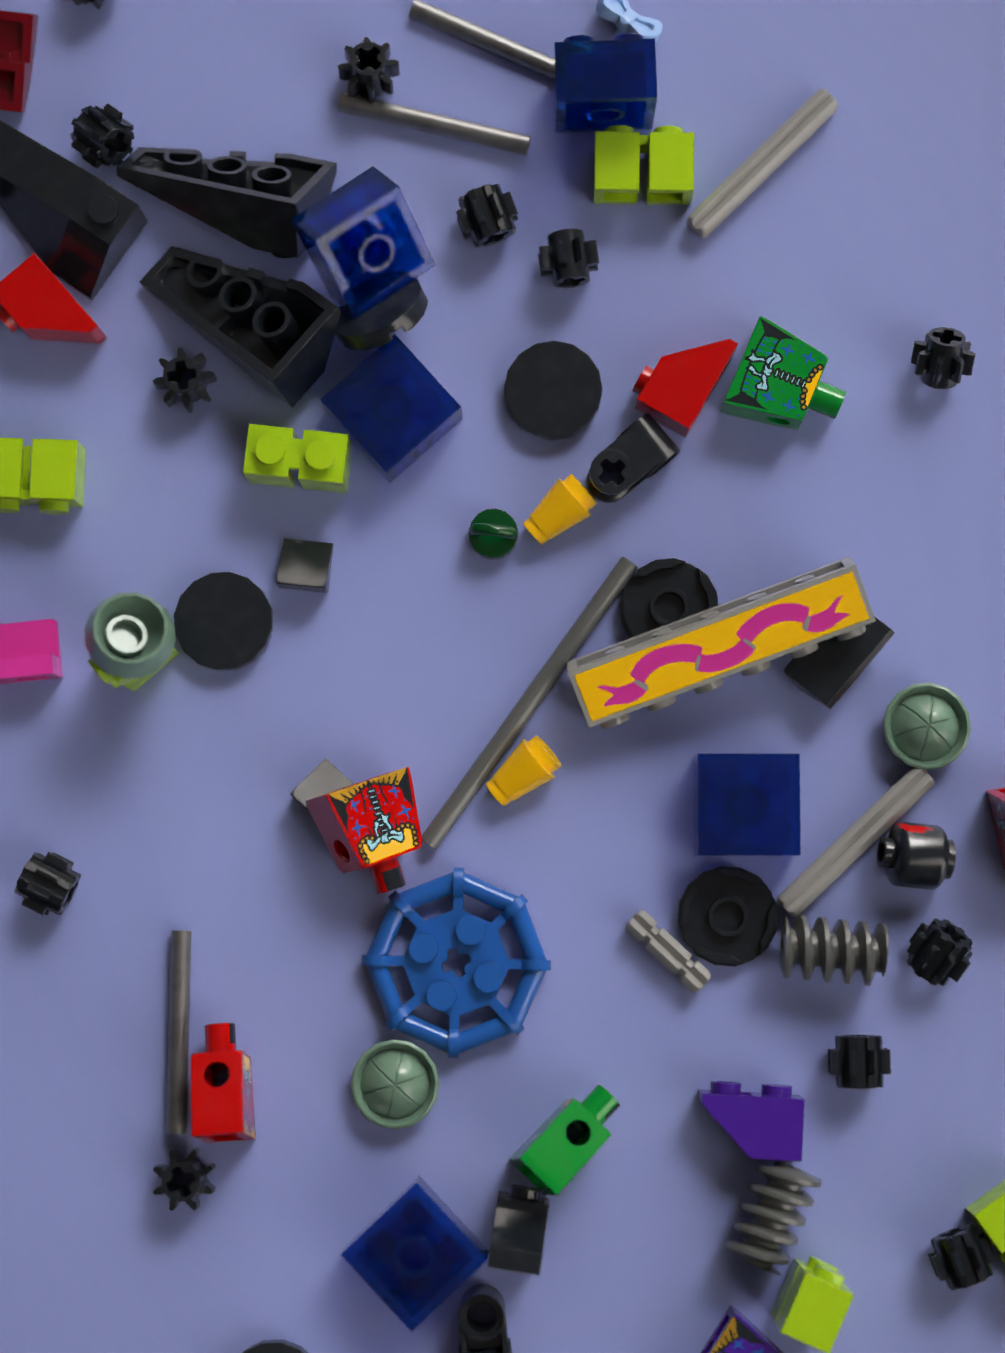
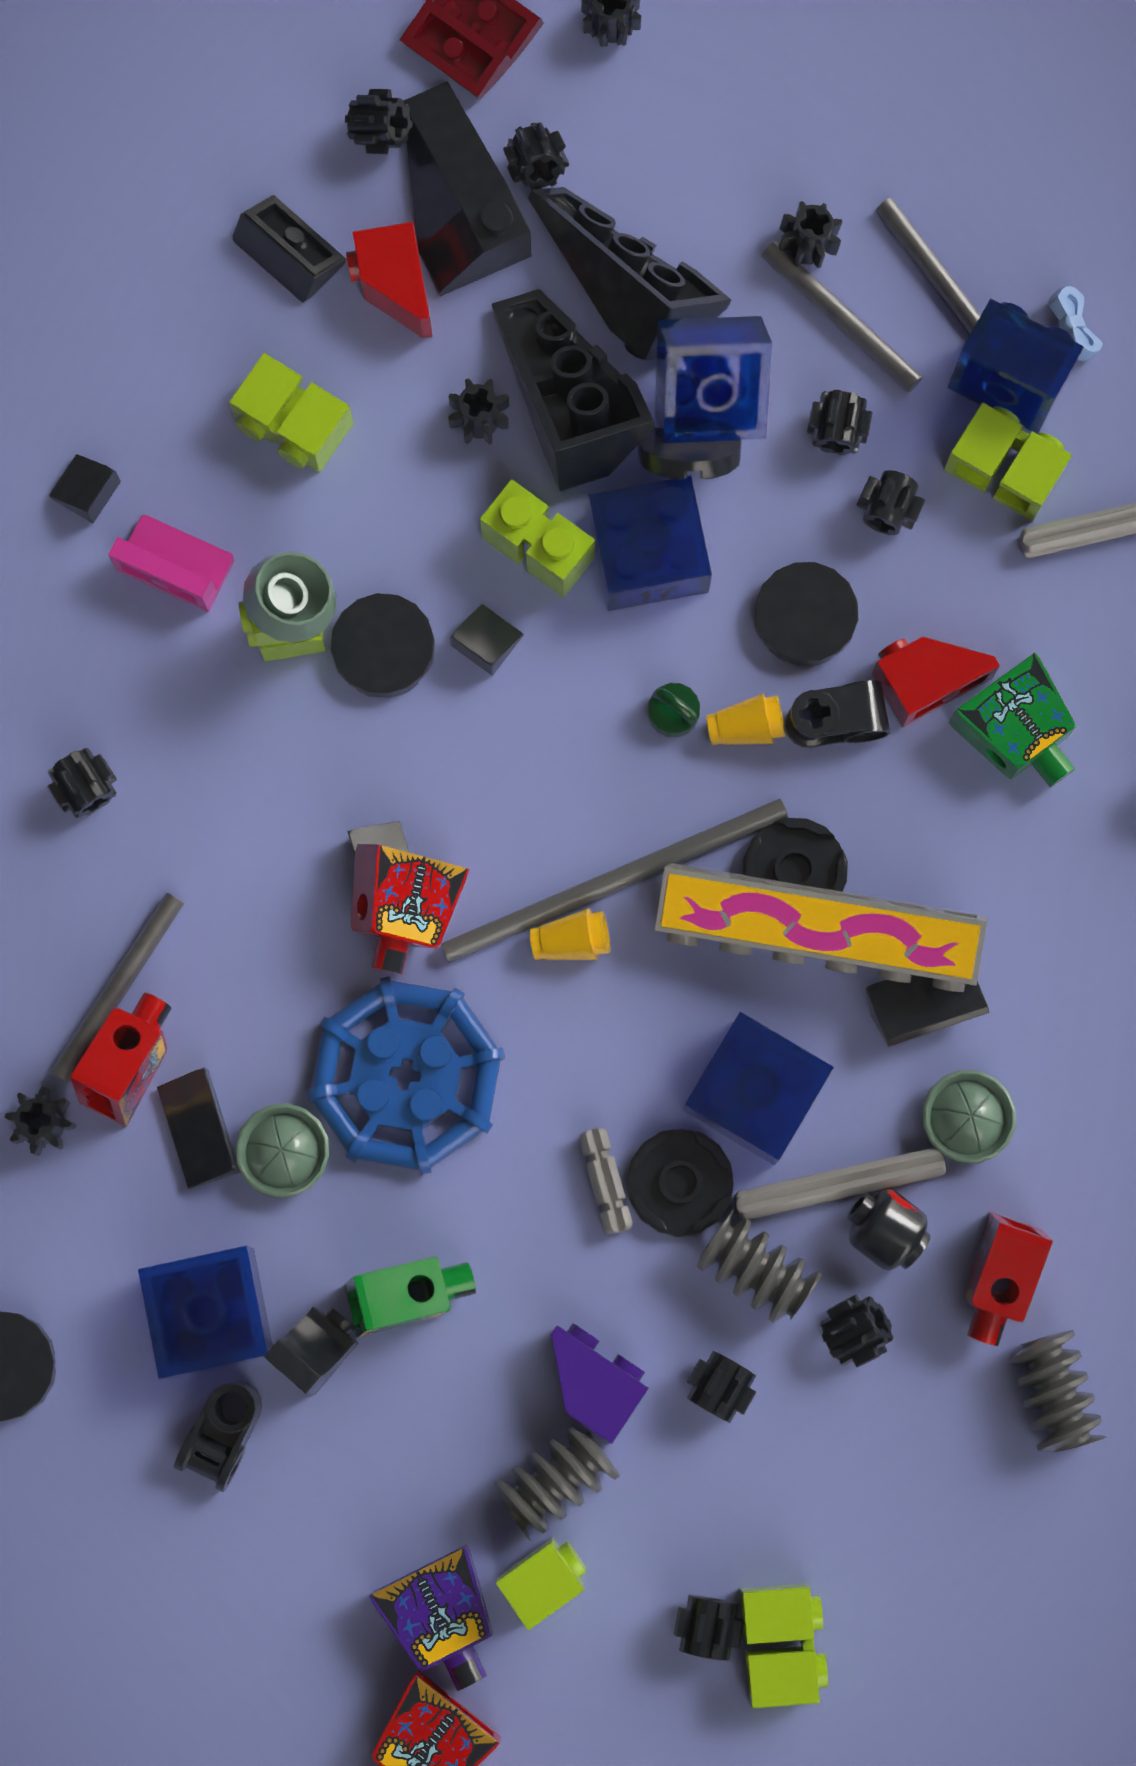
camera: 25 degrees right, 5 degrees down
(315, 1106) = (198, 1128): none -> black slope

